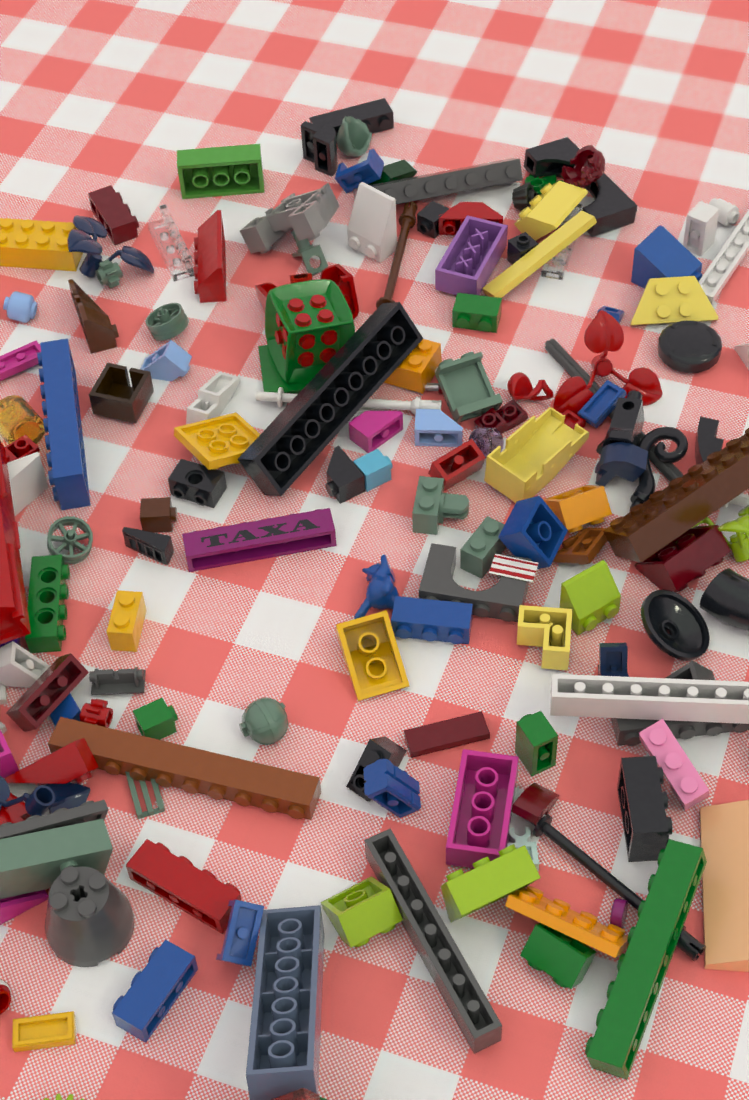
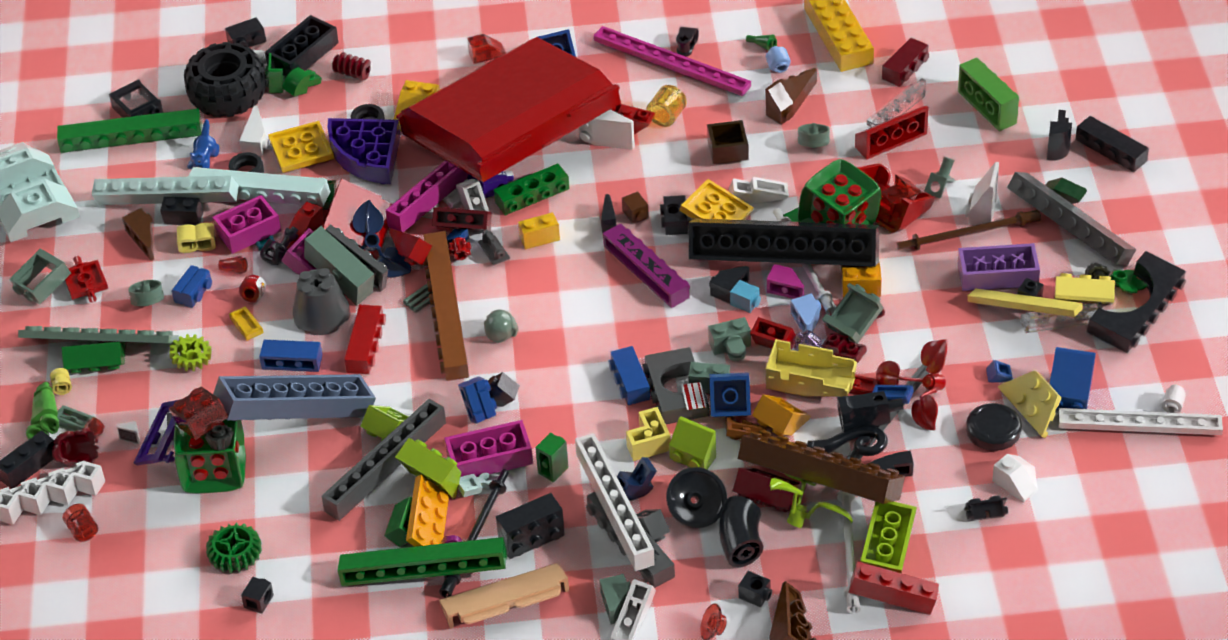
camera: 65 degrees right, 5 degrees down
(63, 425) = (678, 126): blue brick -> none
(70, 539) = (586, 176): sand green wheel -> none
(81, 241) = (869, 51): dark blue plant -> none
(109, 273) = (841, 86): sand green gear -> none
(156, 719) = (471, 277): green brick -> none
(167, 362) = (775, 154): light blue slope -> none
(241, 933) = (343, 365): blue panel -> none
(303, 213) = (959, 151): light grey wedge -> none
(353, 137) = (1089, 149): sand green hair -> none
(366, 172) = (1047, 169): blue panel -> none
(371, 655) = (582, 356): yellow slope -> none
(381, 588) = (642, 339): blue animal -> none
(429, 219) = (1030, 231): black brick -> none
(446, 734) = (543, 417): dark red tile -> none
(453, 218) = (1048, 251): red slope -> none
(476, 312) = (943, 293): green brick -> none
(521, 388) = (879, 344): red piece -> none
(534, 803) = (511, 473): dark red slope -> none
(587, 169) = (1137, 292): dark red hair -> none
(621, 460) = (829, 419): dark blue brick -> none
(676, 766) = (563, 541): bright pink arch -> none
(700, 228) = (1131, 387): white panel -> none

